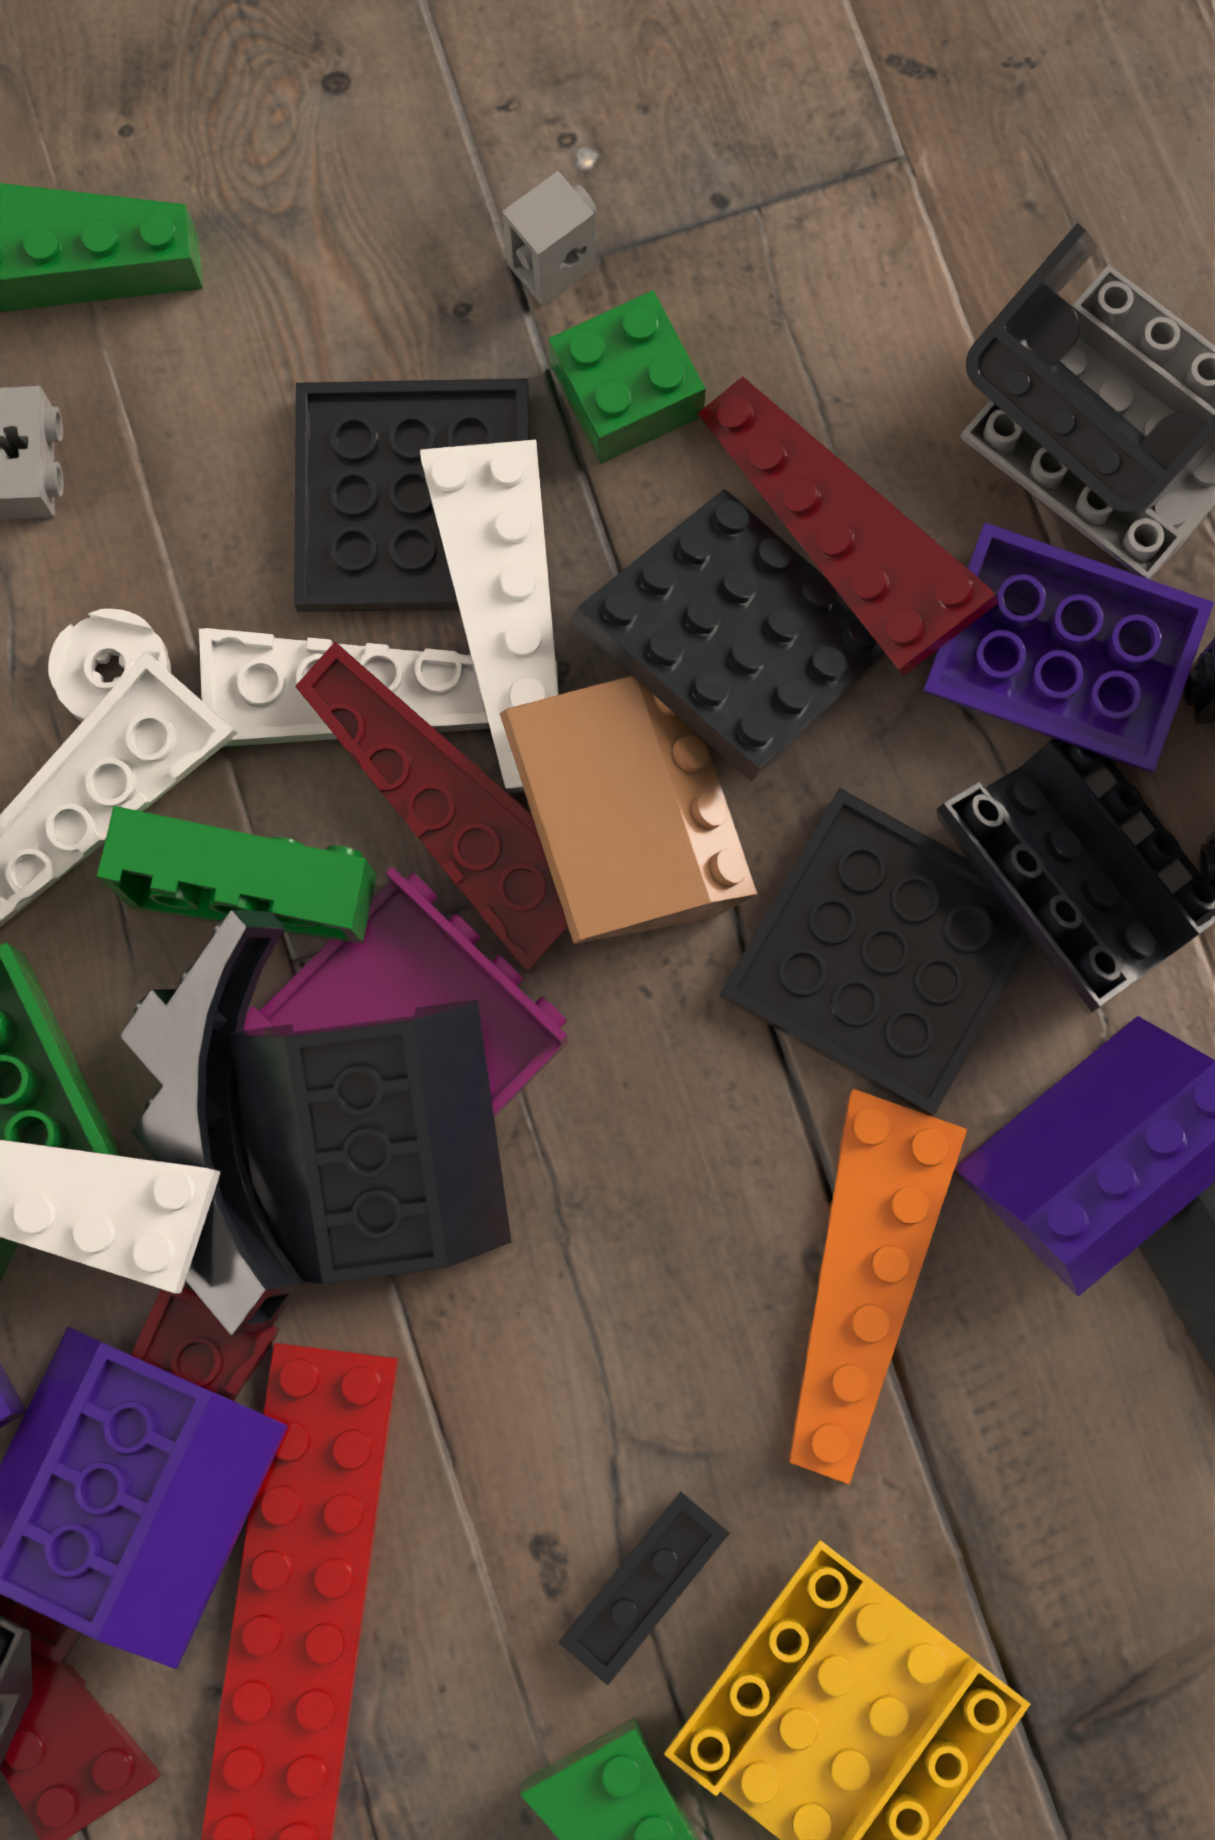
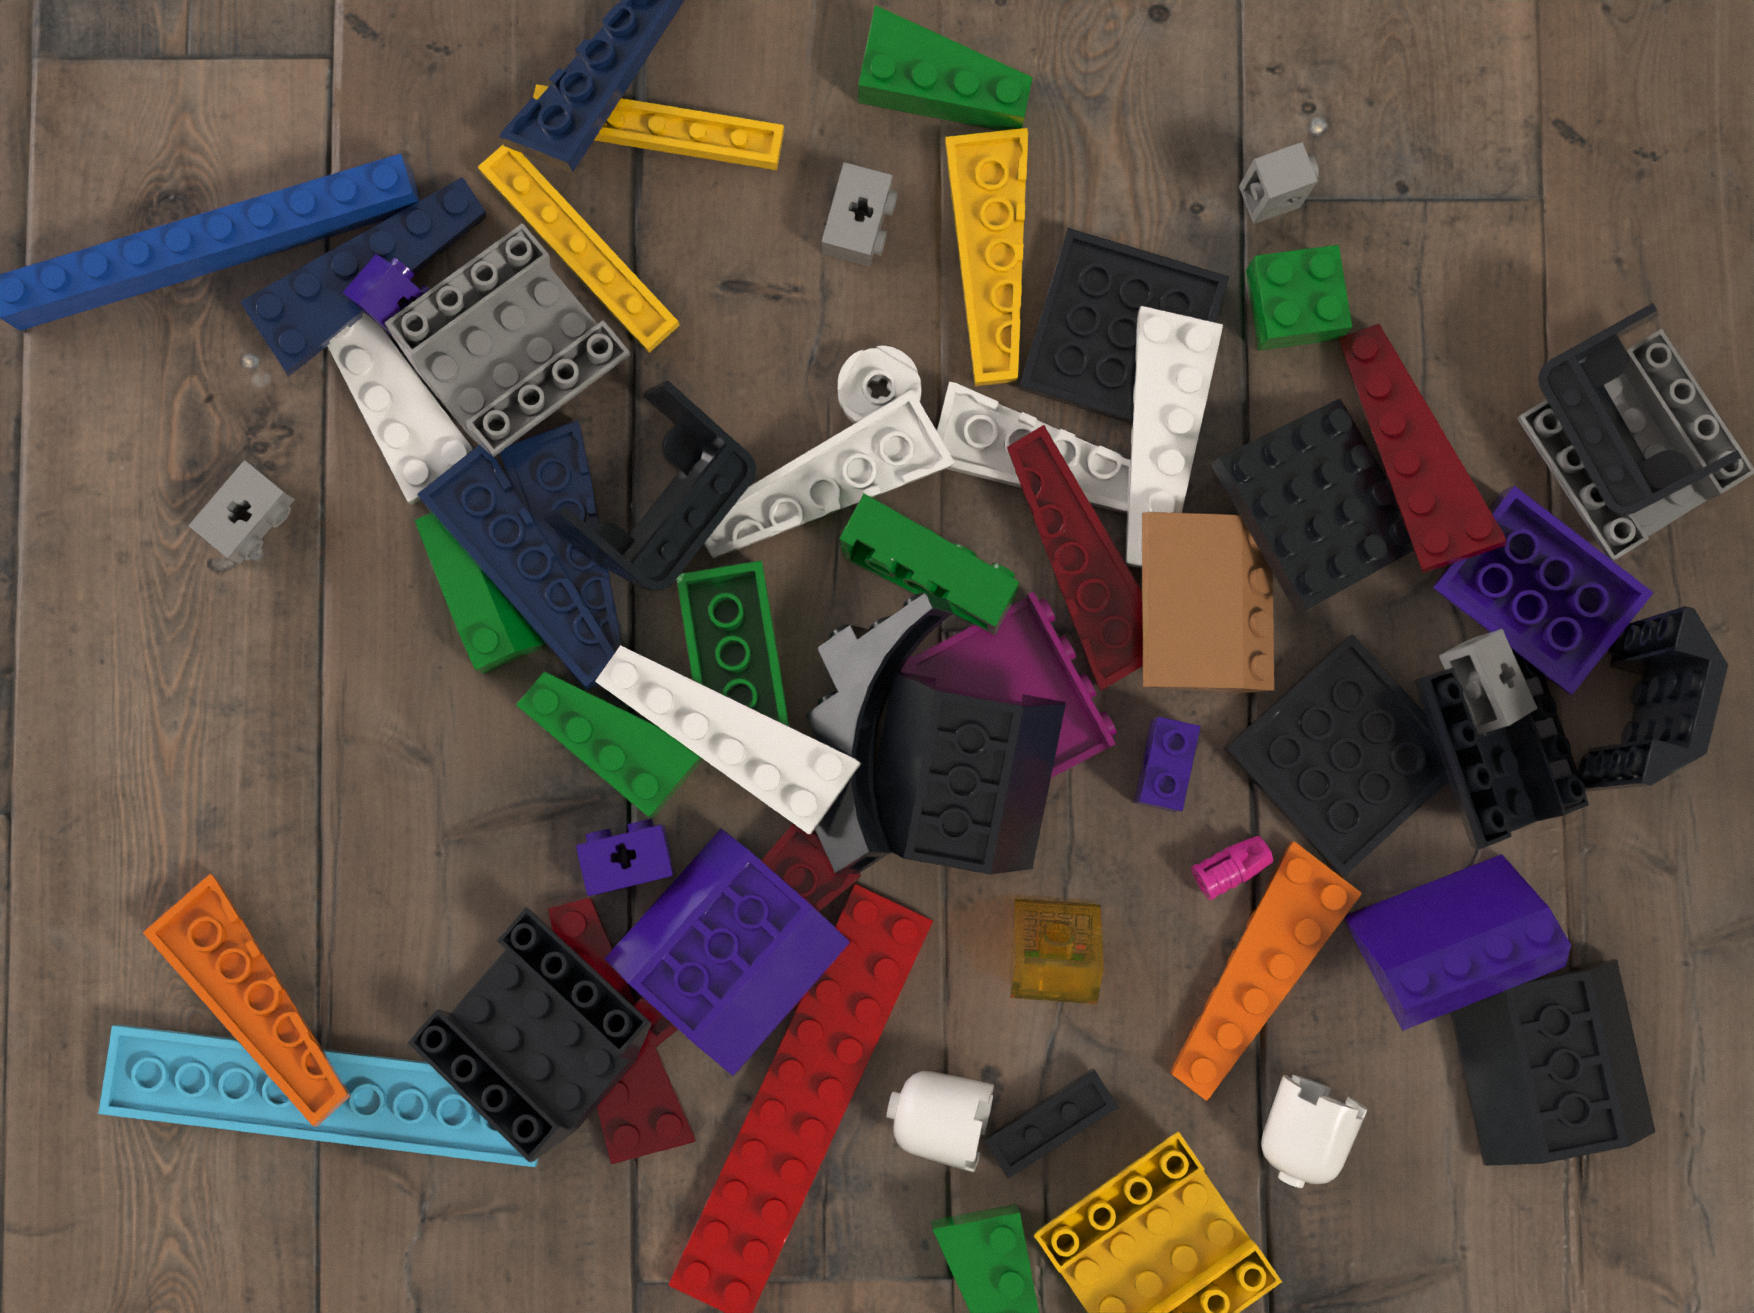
camera: 10 degrees right, 5 degrees up
(192, 407) = (989, 217): none -> yellow wing
(488, 1629) = (941, 1117): none -> white cylinder
(576, 1345) = (1056, 951): none -> clear yellow slope
(647, 1040) = (1166, 764): none -> dark purple brick
(780, 1150) = (1231, 866): none -> dark pink hinge
(1001, 1480) = (1309, 1131): none -> white cylinder
(1038, 787) = (1490, 681): none -> light grey brick

